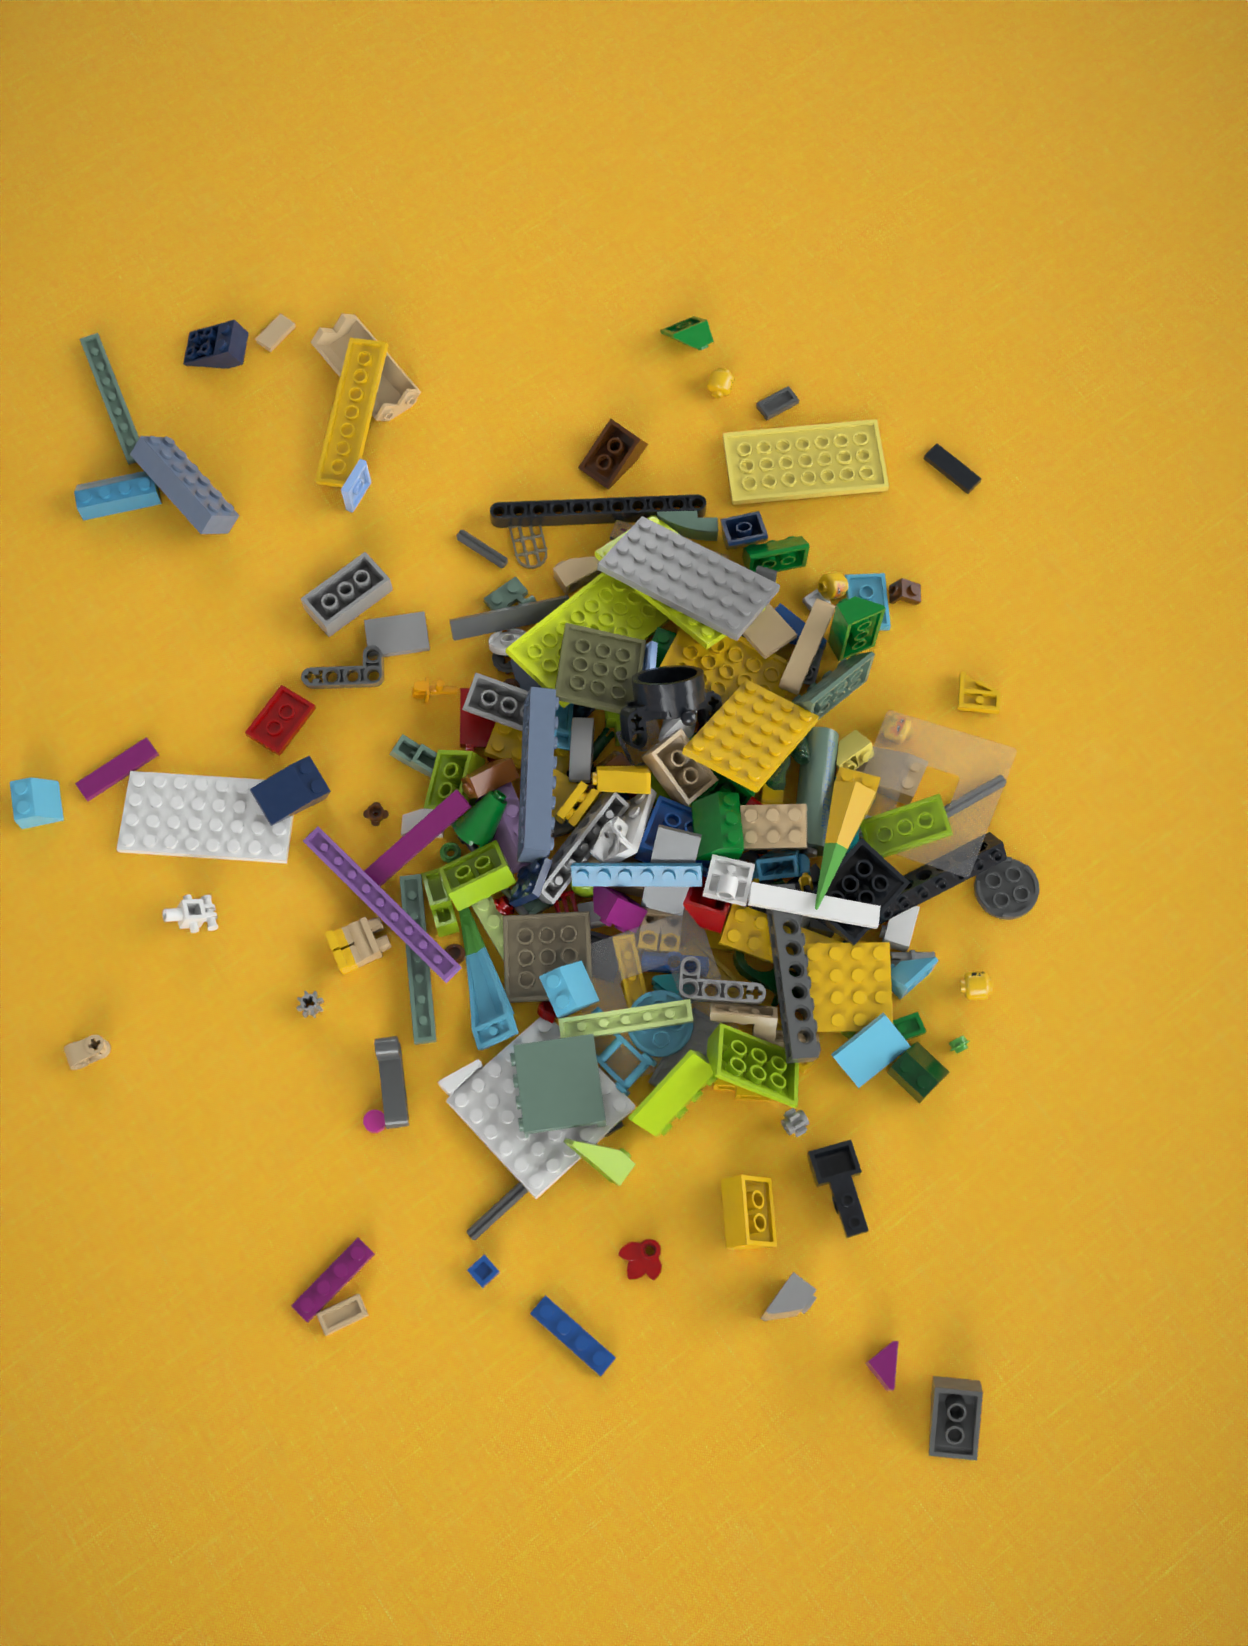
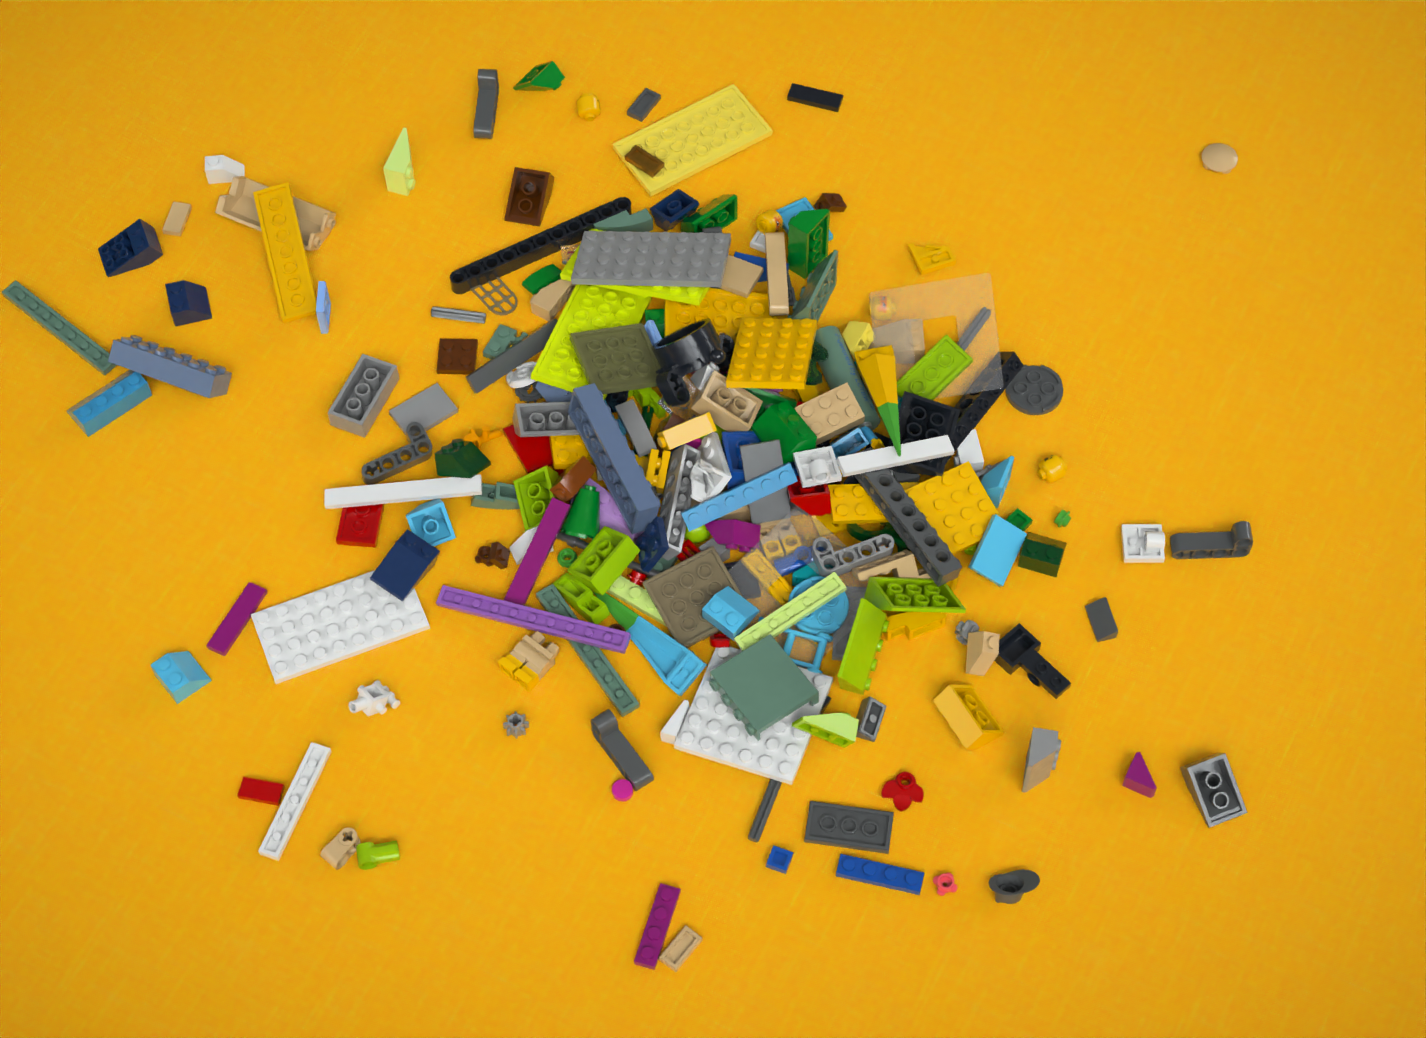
camera: 25 degrees left, 10 degrees down
(47, 955) = (261, 791): none -> red tile
(70, 981) = (294, 801): none -> white plate
(110, 1071) = (372, 854): none -> lime piece
(239, 424) = (188, 302): none -> dark blue slope
(330, 713) = (402, 492): none -> white tile
(339, 756) = (431, 522): none -> medium azure slope
(341, 300) = (222, 169): none -> white slope
(386, 820) = (499, 555): none -> reddish brown plate
(398, 705) = (460, 460): none -> dark green slope
(458, 591) = (457, 356): none -> reddish brown plate
(505, 368) = (399, 167): none -> yellowish green slope
(569, 1270) = (849, 827): none -> dark grey tile
(579, 546) = (542, 278): none -> green slope
(624, 337) = (486, 103): none -> dark grey beam
(626, 1374) = (945, 878): none -> coral plate
(650, 1165) = (870, 718): none -> dark grey slope
(695, 1418) = (1012, 885): none -> dark grey piece
(743, 465) = (644, 161): none -> pearl gold tile
(795, 1152) = (981, 652): none -> tan slope
(939, 1174) = (1101, 620): none -> dark grey slope
(1027, 1111) = (1143, 543): none -> white plate
(1099, 1148) = (1213, 544): none -> dark grey beam

